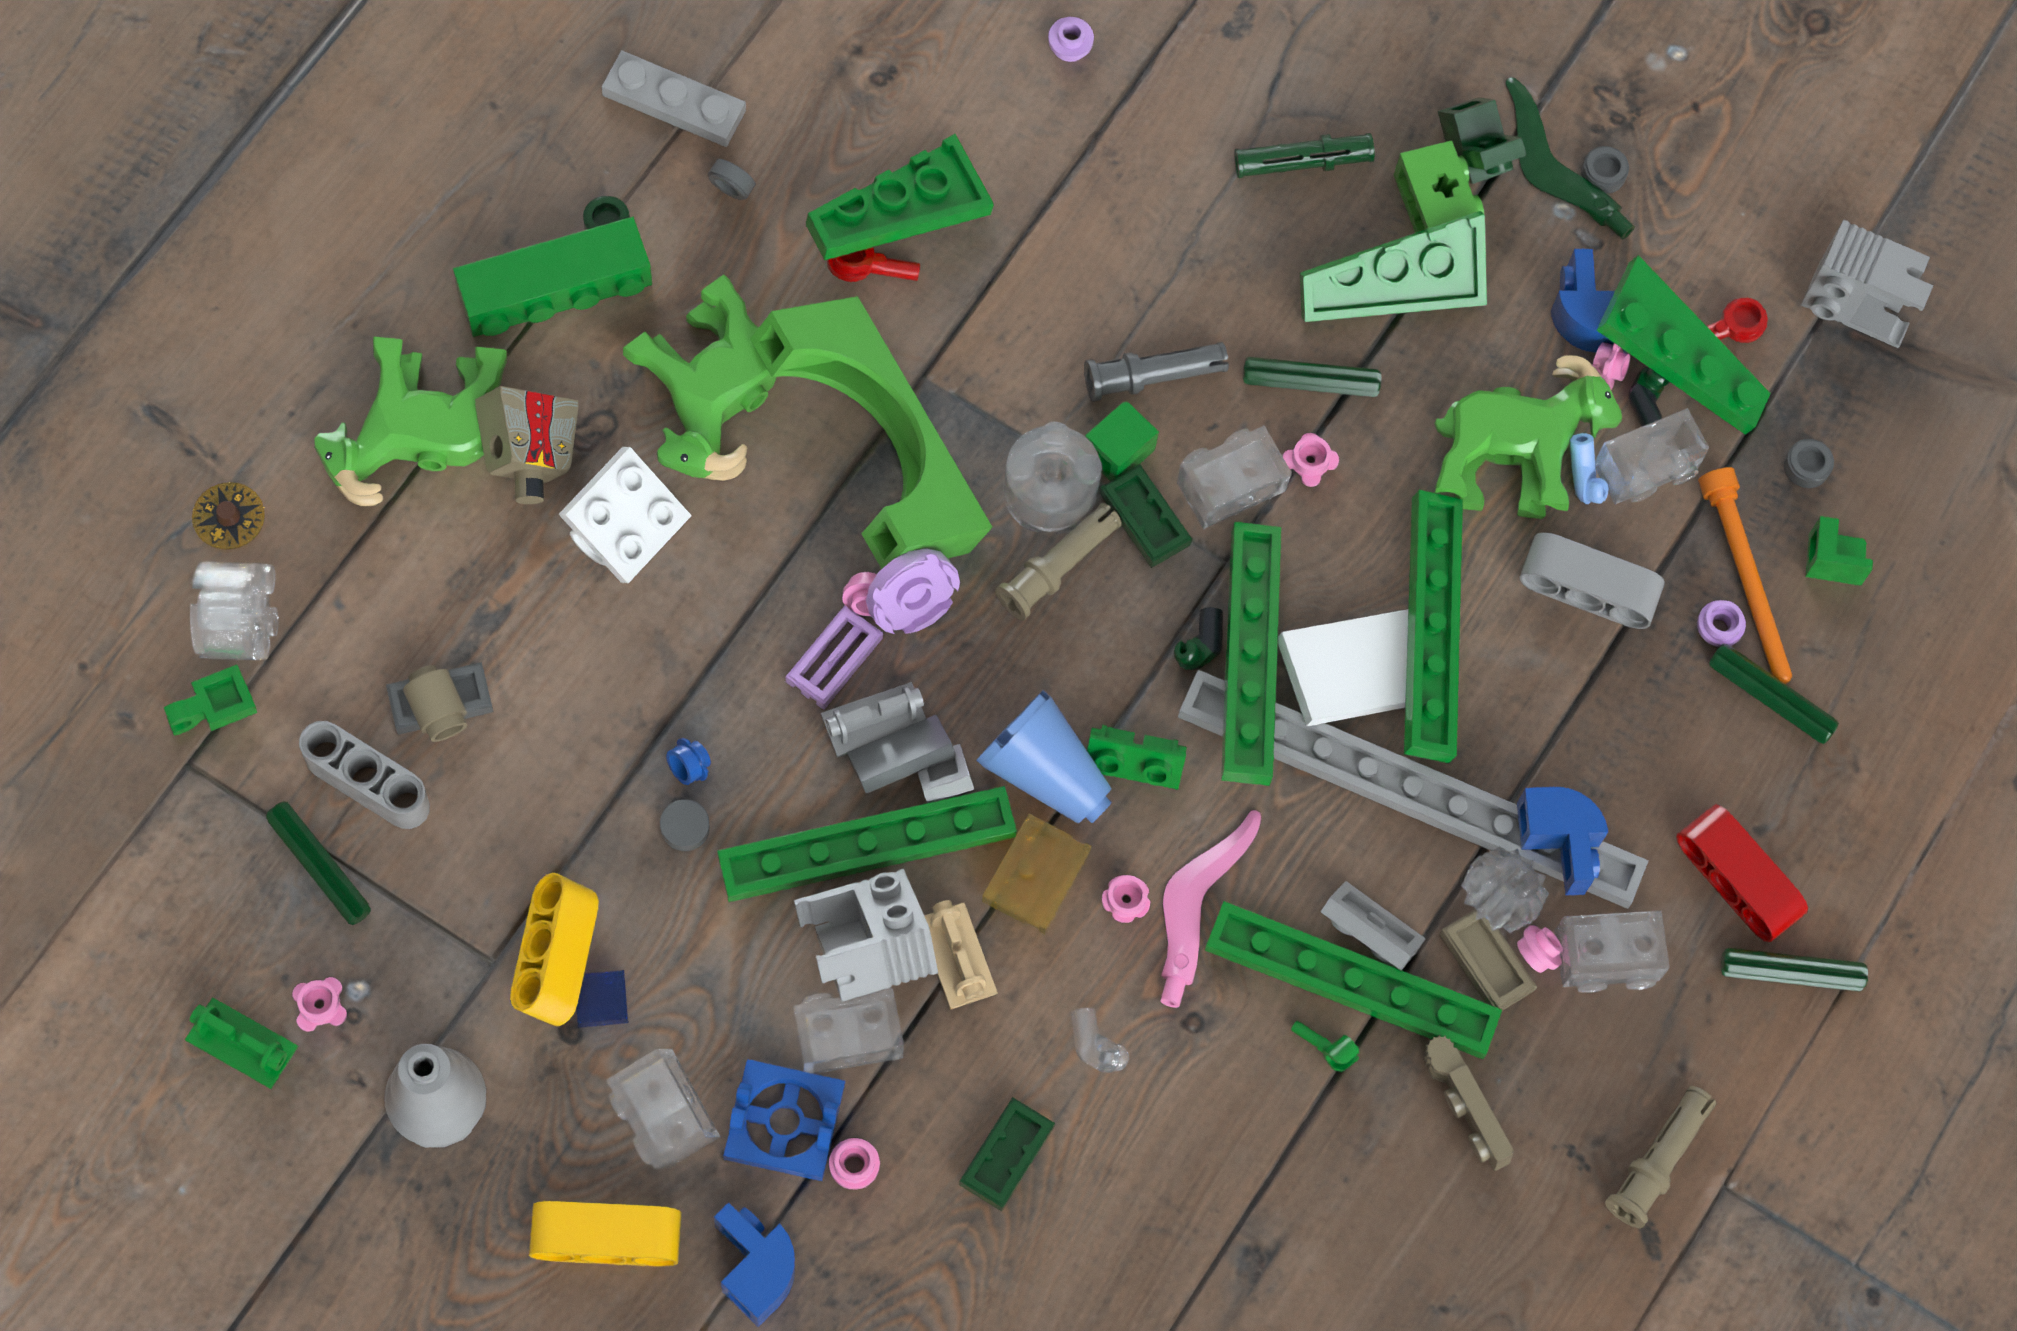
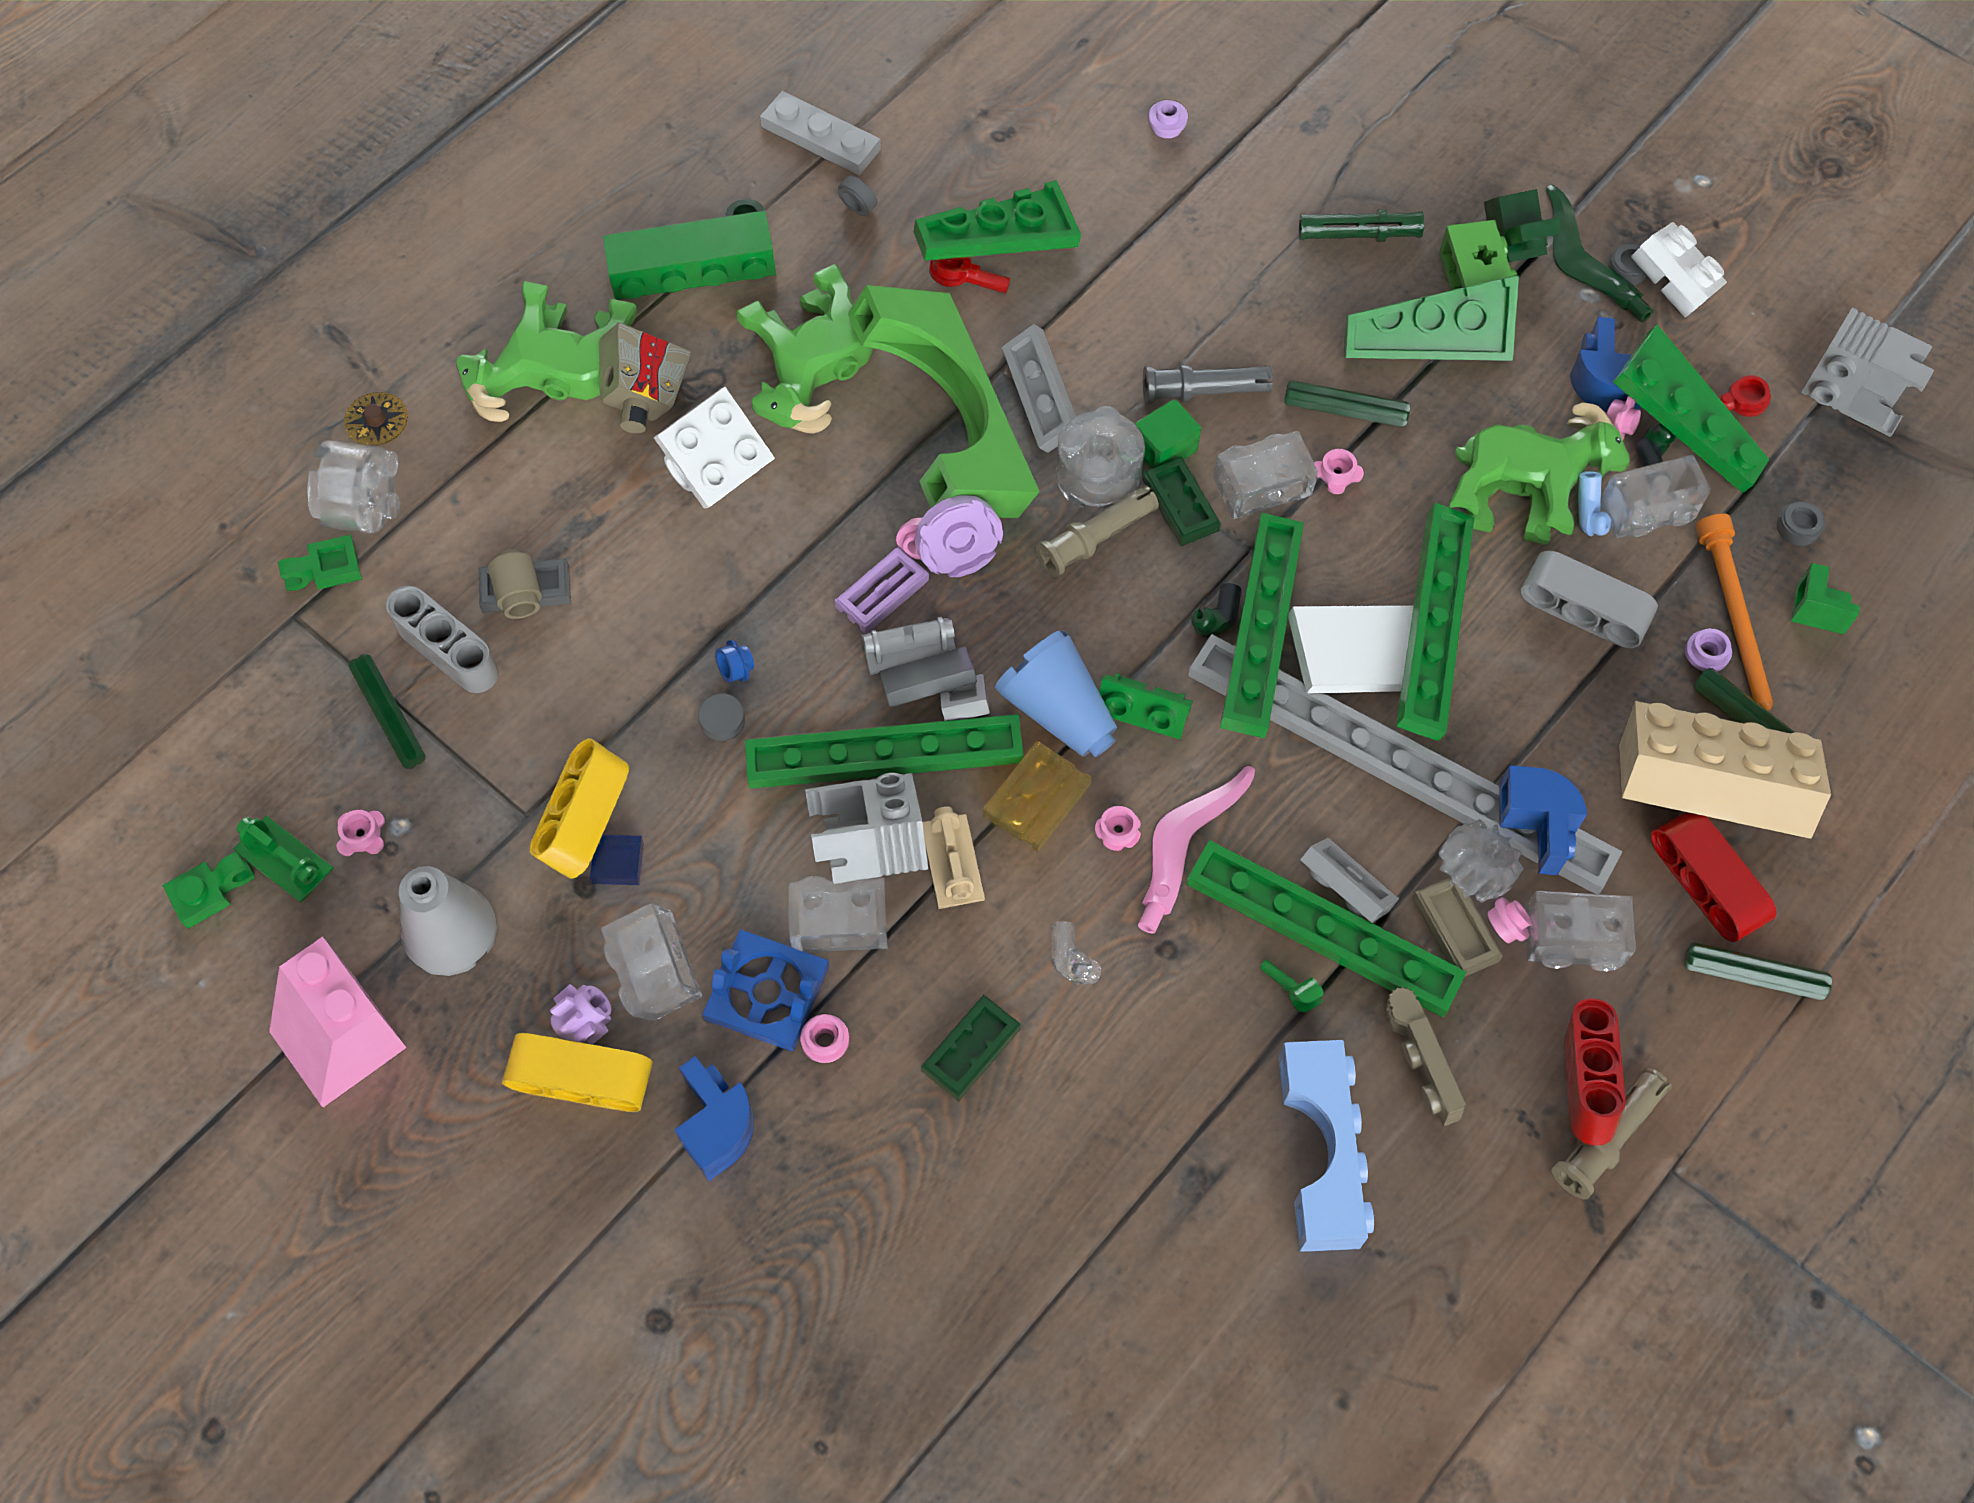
camera: 15 degrees right, 5 degrees down
(161, 1091) = (203, 890): none -> green plate
(338, 1219) = (328, 1023): none -> bright pink slope
(598, 1172) = (580, 1014): none -> lavender gear
(973, 397) = (1039, 385): none -> light grey plate
(1363, 1145) = (1317, 1083): none -> light blue arch
(1635, 1118) = (1594, 1072): none -> red beam
(1662, 173) = (1690, 274): none -> white plate
(1743, 760) = (1723, 769): none -> tan brick

